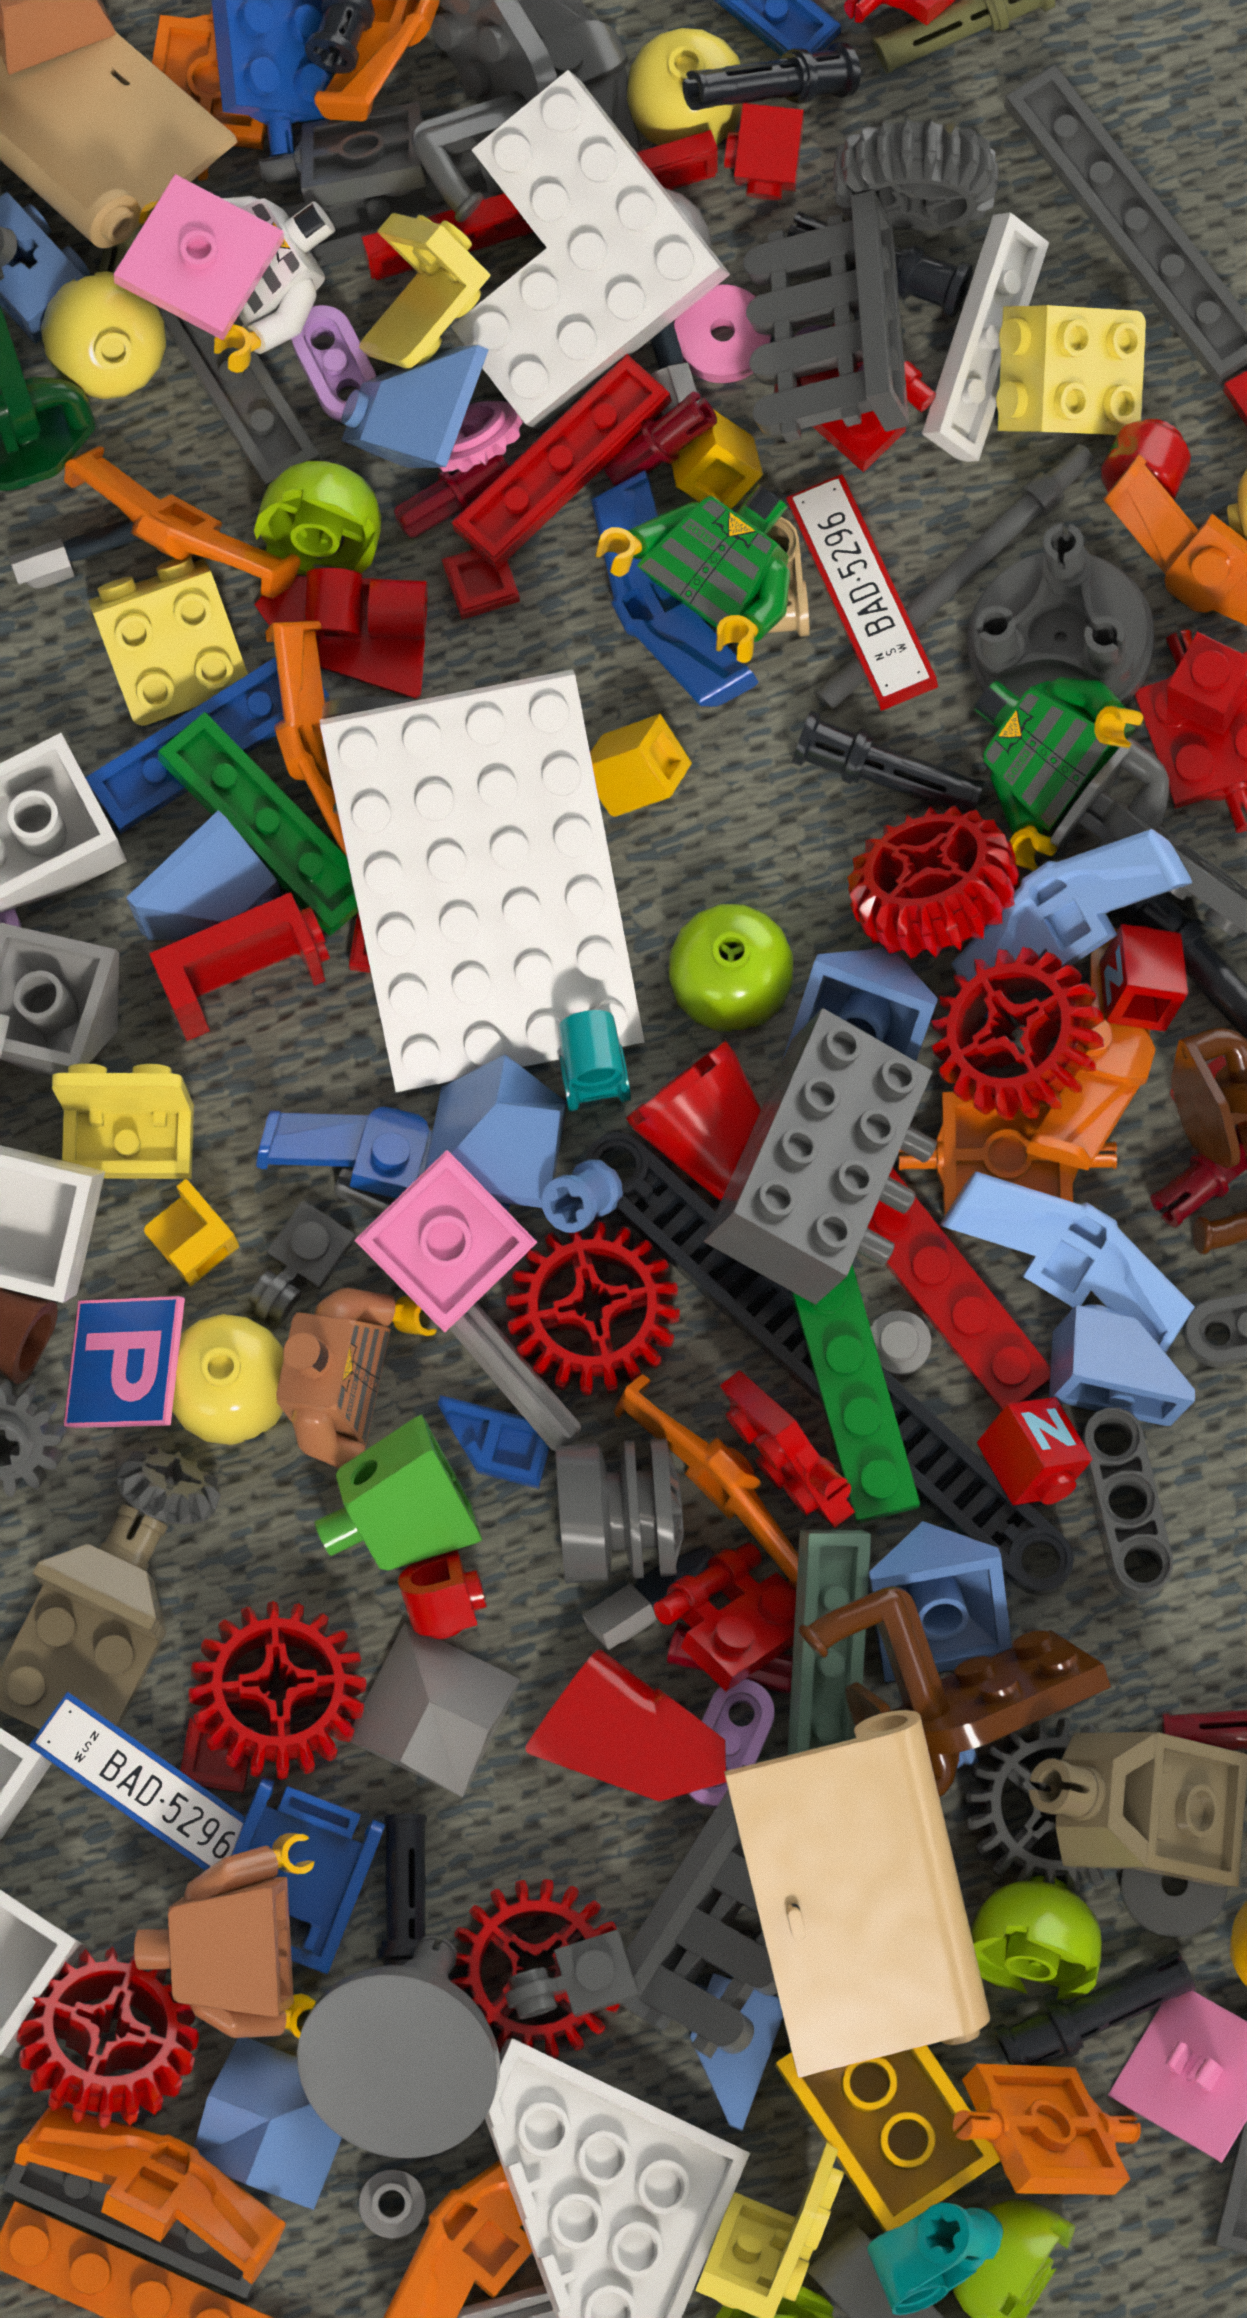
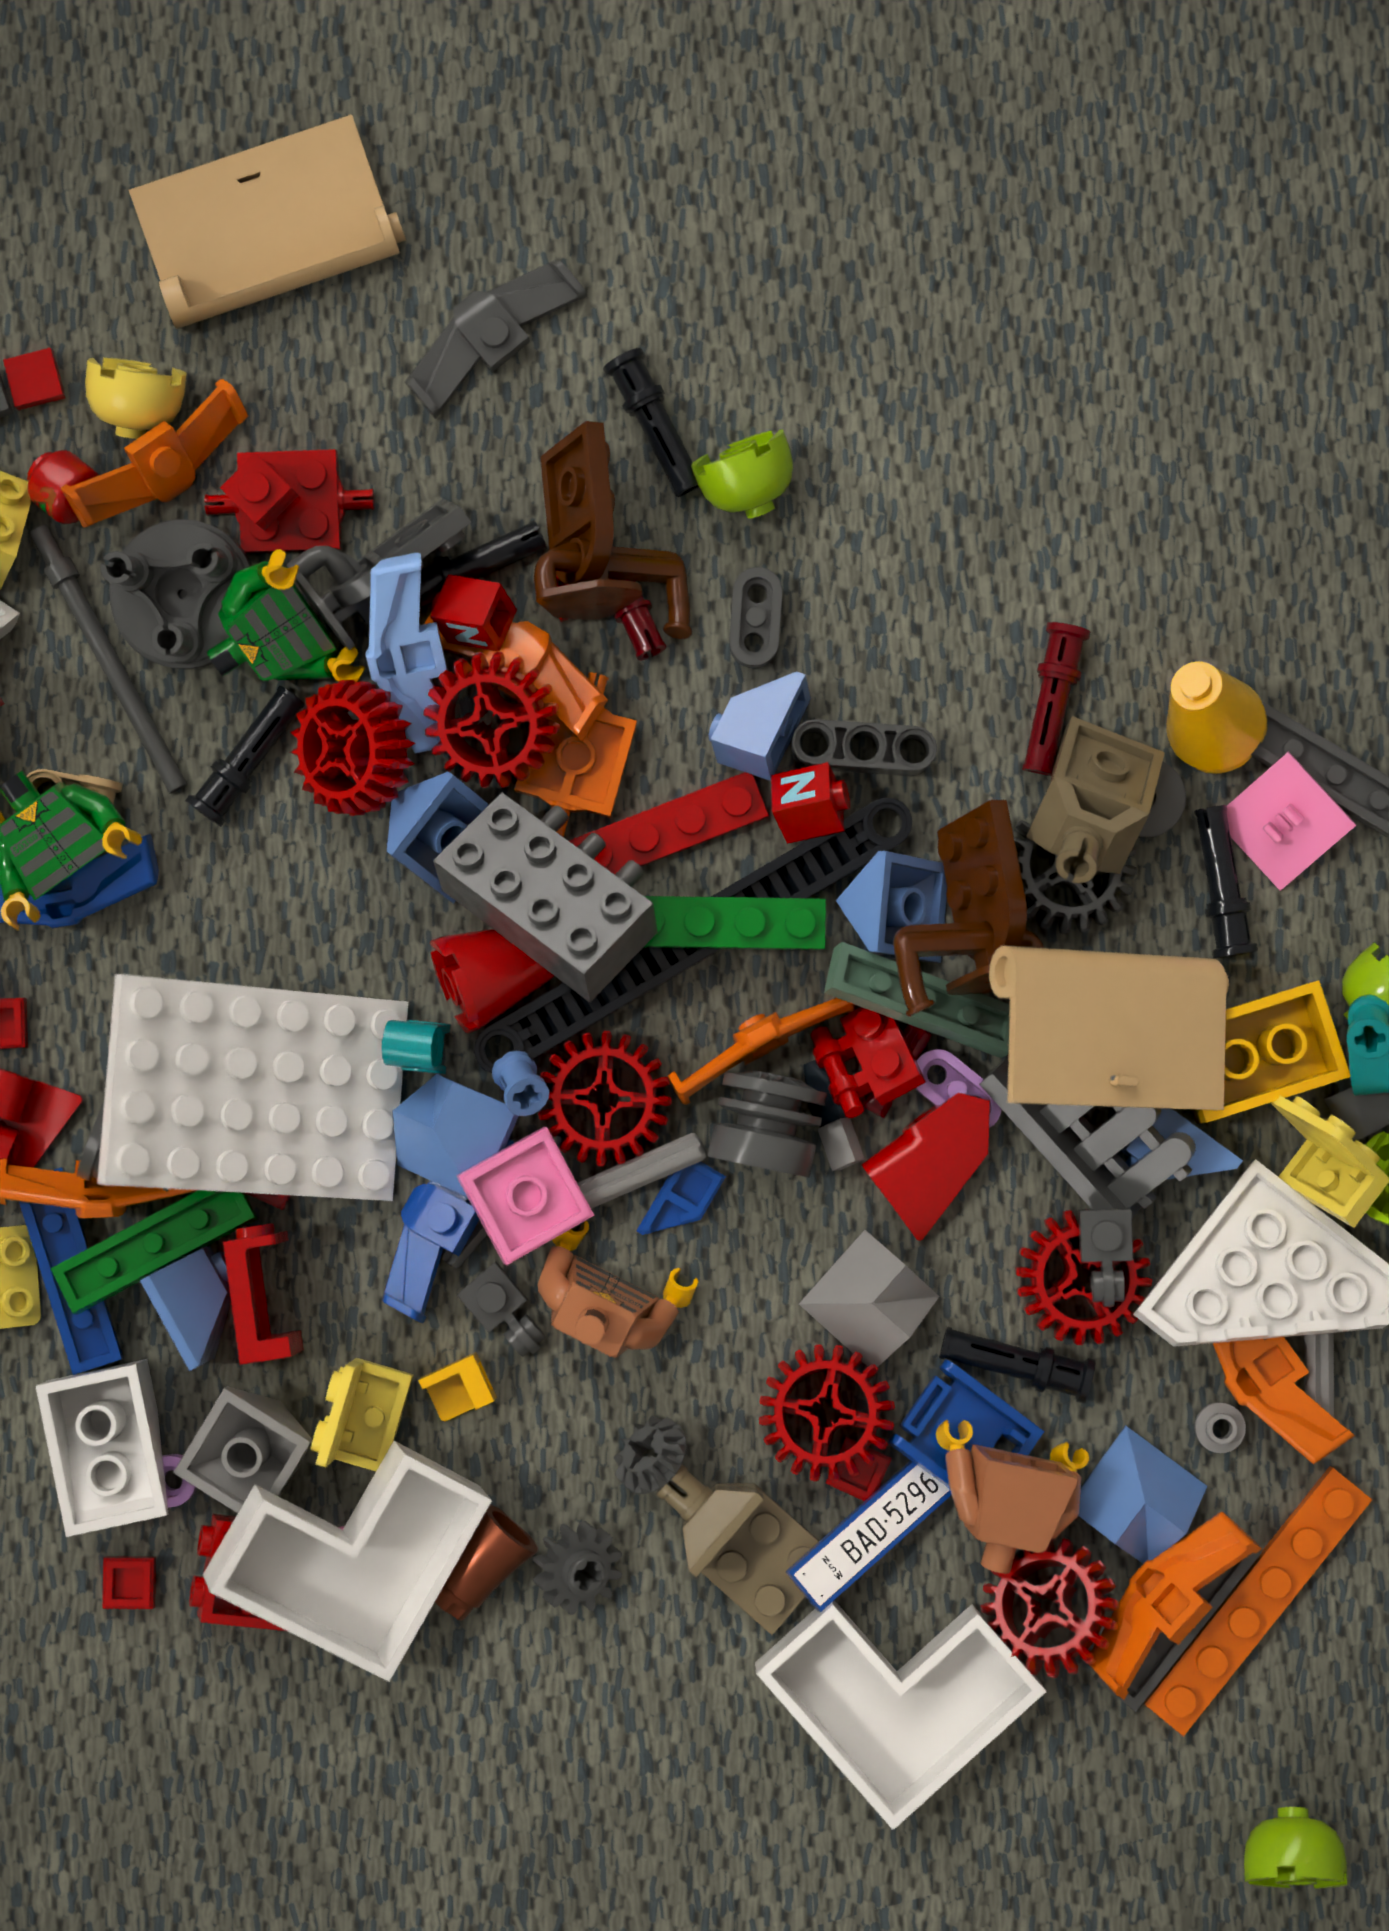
camera: 80 degrees left, 10 degrees up
(124, 1362) = (545, 1463): blue piece -> none
(227, 1379) = (577, 1389): light yellow cylinder -> none
(400, 1501) = (713, 1283): bright green torso -> none
(400, 2057) = (1130, 1395): piece -> none
(441, 1595) = (789, 1271): red plate -> none
(638, 765) = (188, 944): yellow panel -> none
(731, 992) = (391, 927): lime cylinder -> none
(786, 1452) = (762, 987): red plate -> none
(862, 592) = (100, 733): white tile -> none
(901, 1342) = (693, 876): light grey plate -> none
(1038, 1935) = (1160, 906): lime cylinder -> none
(1046, 2129) = (1304, 942): orange plate -> none
(1072, 1252) = (665, 731): light blue plate -> none

